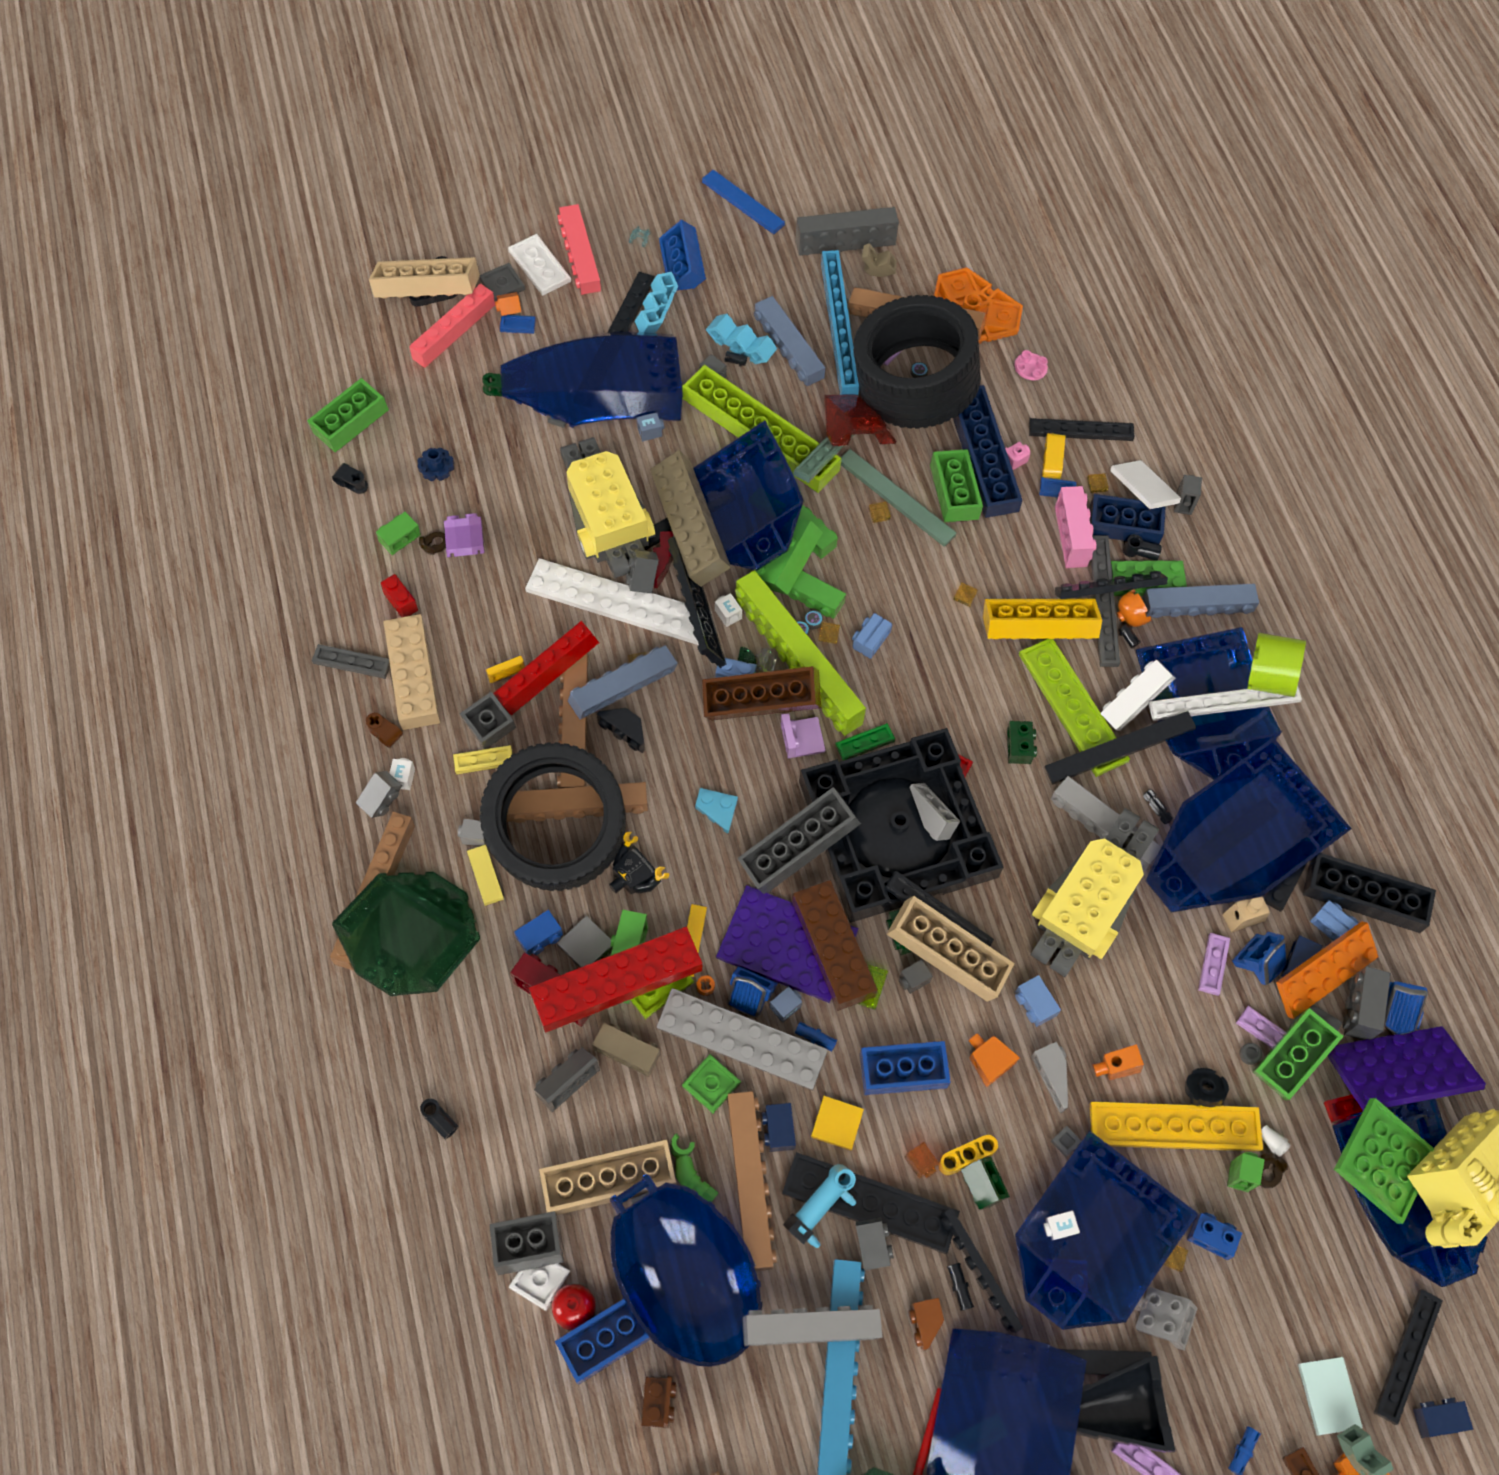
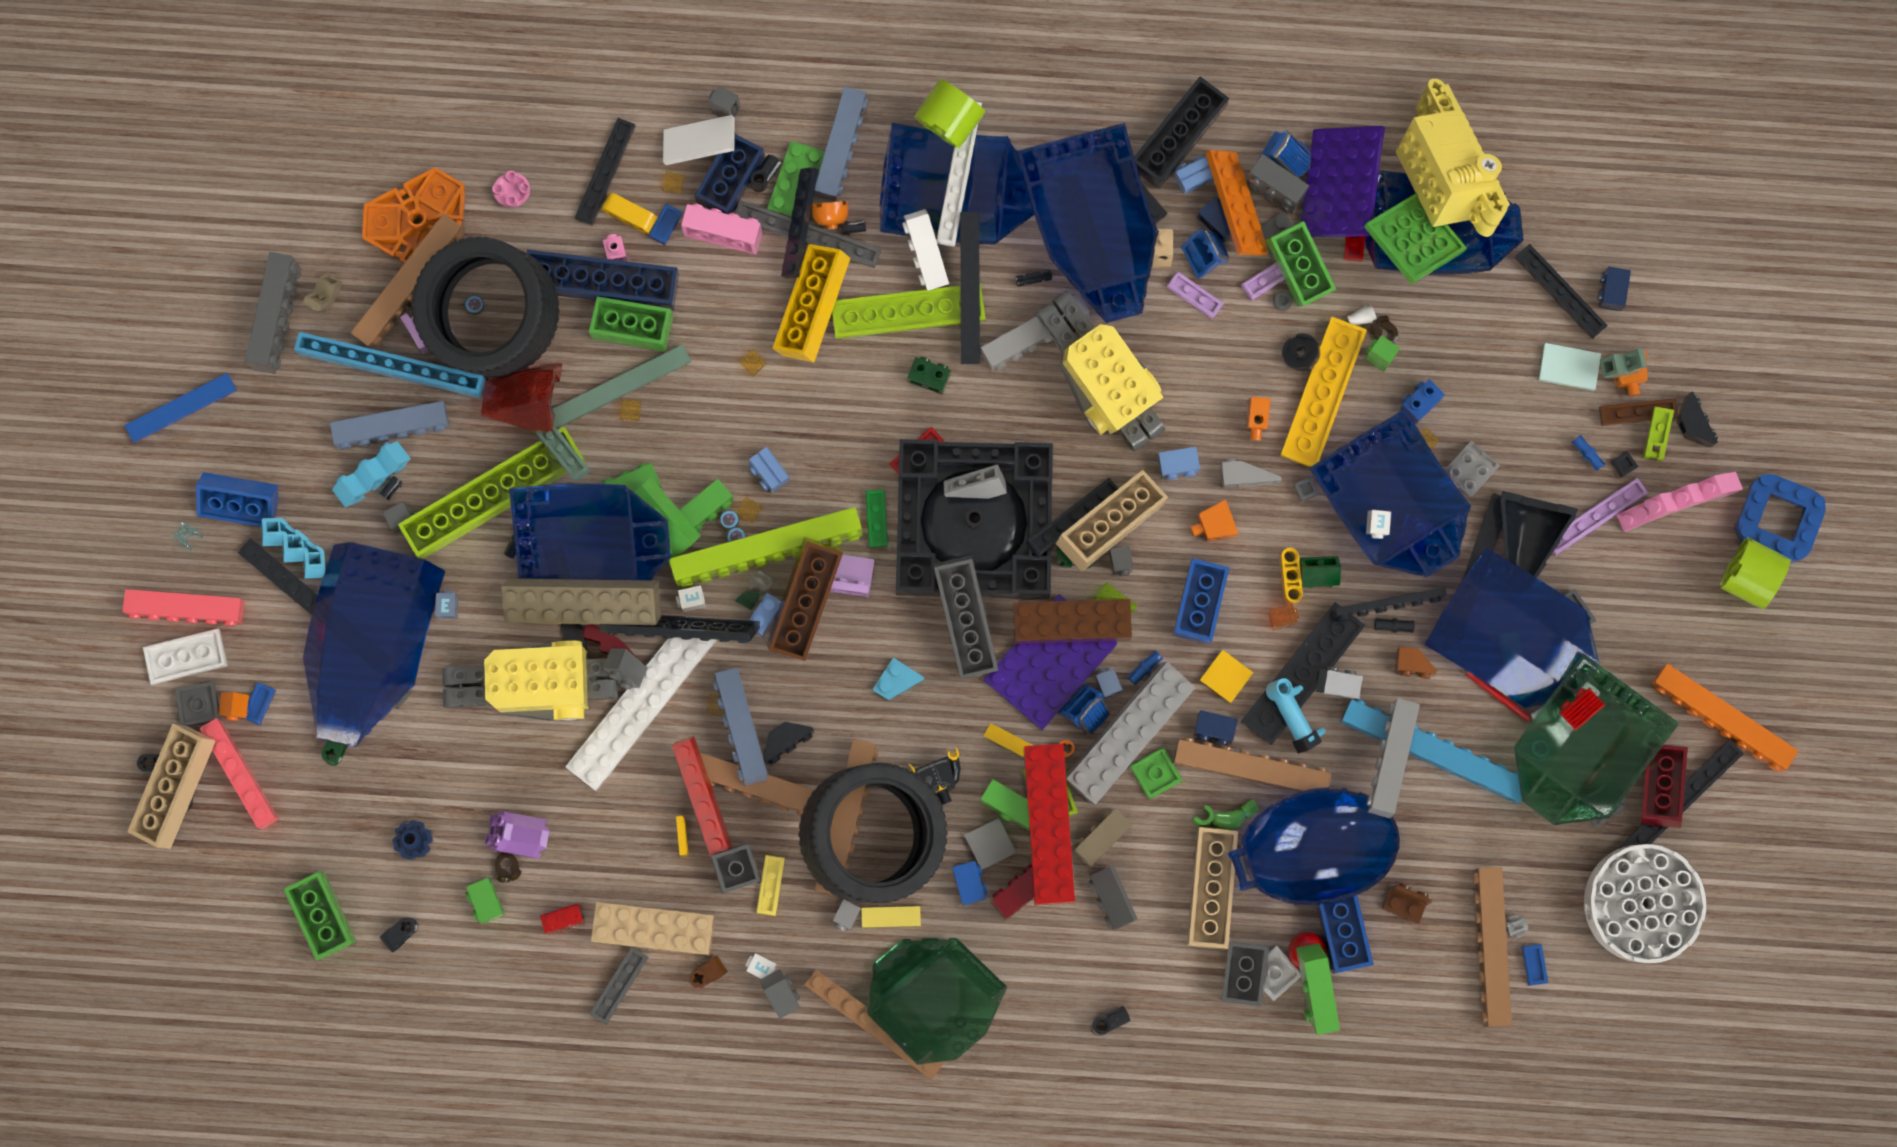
camera: 70 degrees left, 15 degrees up
(529, 1325) = (1317, 989): none -> bright green brick

